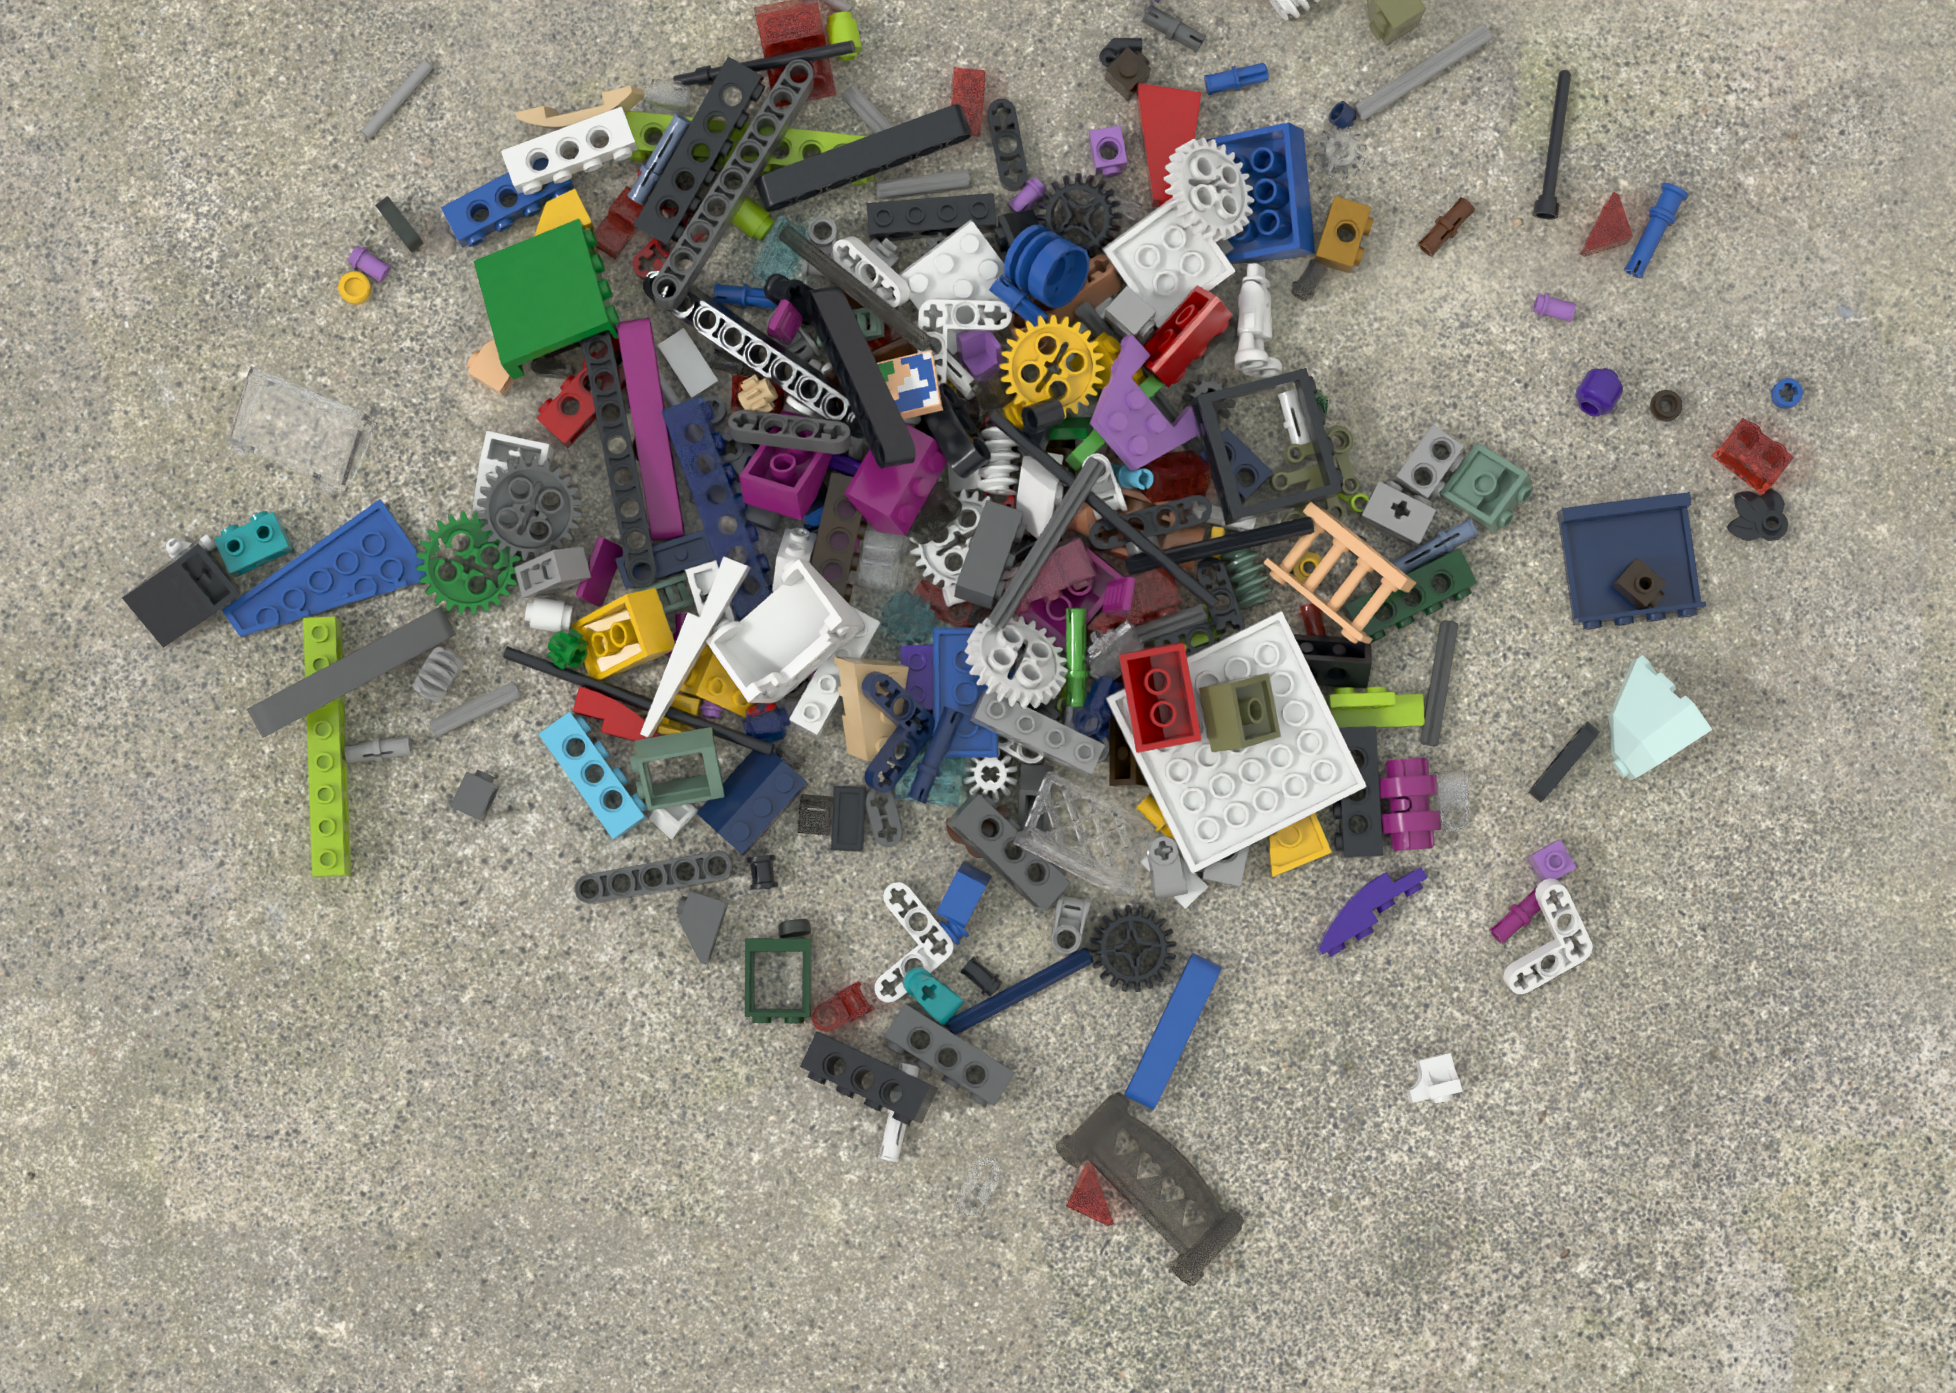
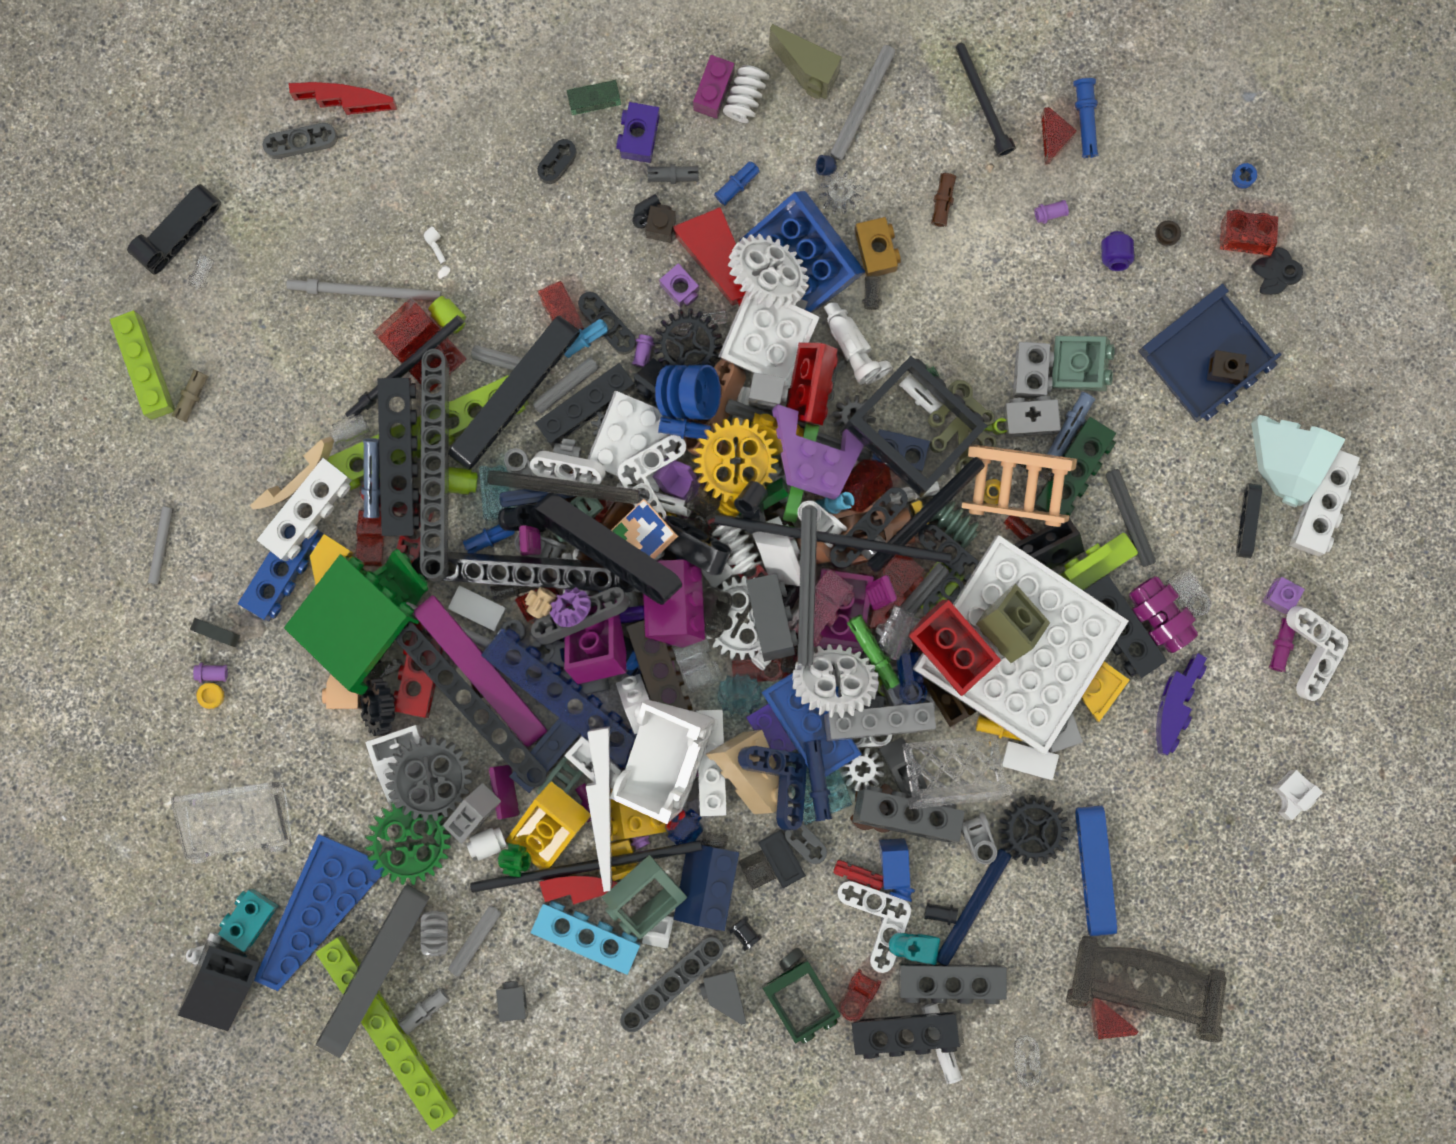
camera: 30 degrees left, 0 degrees up
(521, 403) = (377, 707): none -> black gear
(628, 284) = (402, 578): none -> green bracket
(773, 423) = (567, 617): none -> medium lavender gear
(809, 275) = (524, 496): none -> dark blue axle
(919, 883) = (858, 874): none -> red axle
(977, 146) = (587, 336): none -> dark azure axle
(1166, 875) = (1026, 764): light grey piece -> none
(1614, 816) = (1304, 535): none -> white brick

